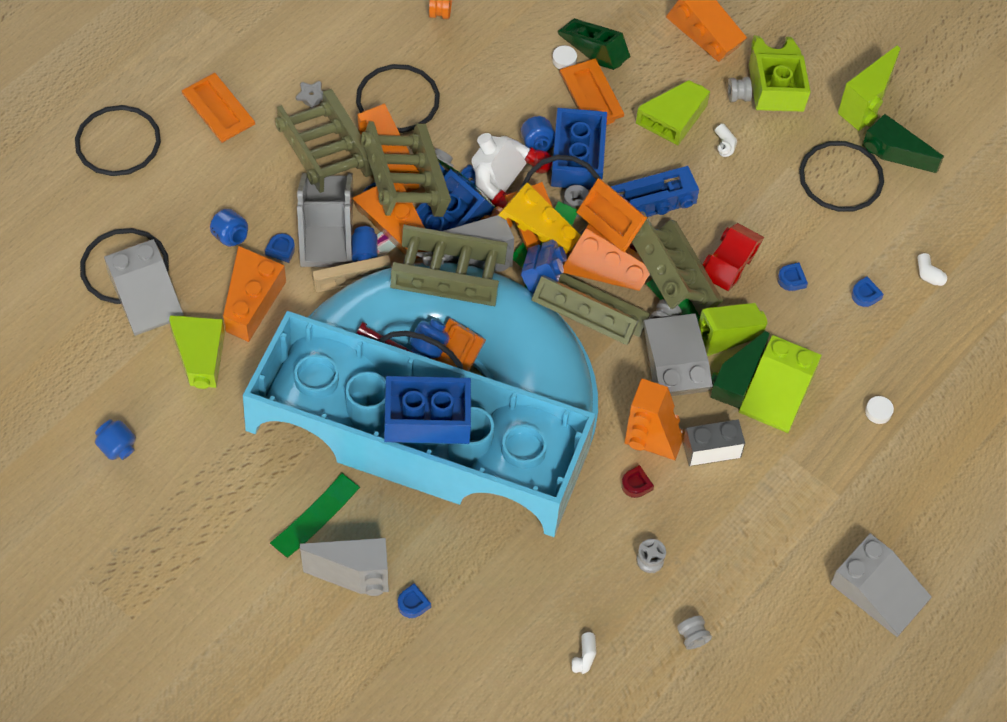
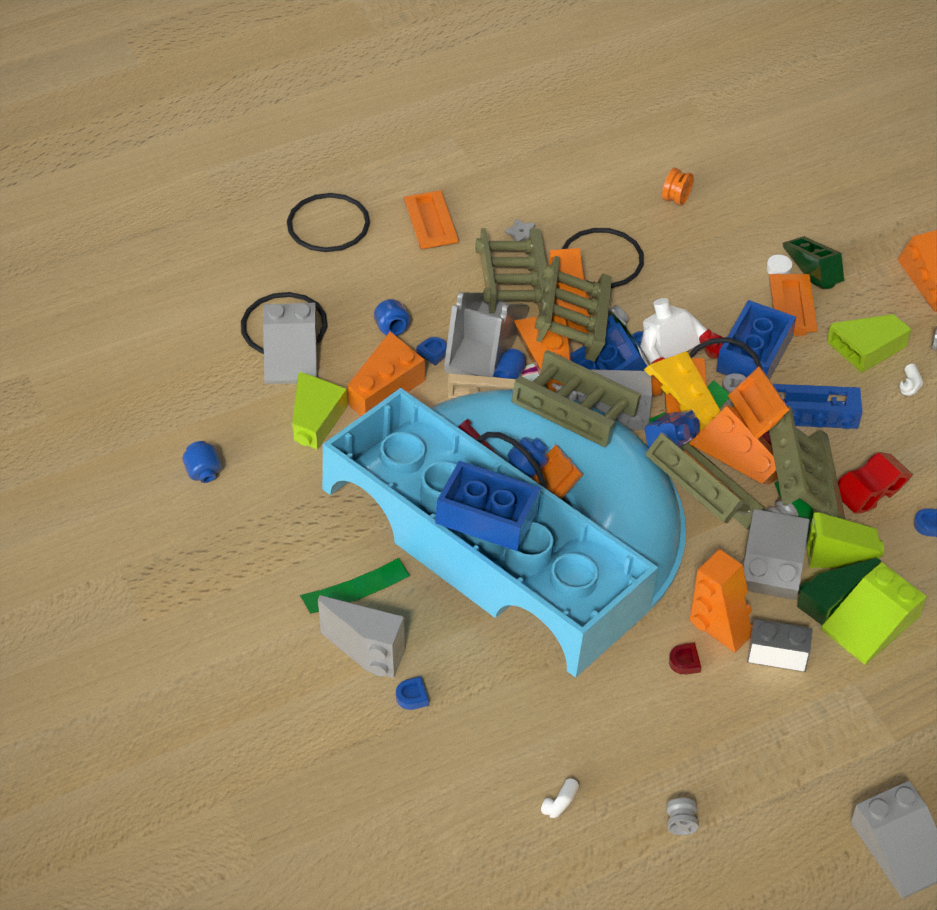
camera: 25 degrees right, 10 degrees down
(538, 133) = (721, 318): blue head -> none
(651, 549) = (669, 722): light grey wheel -> none

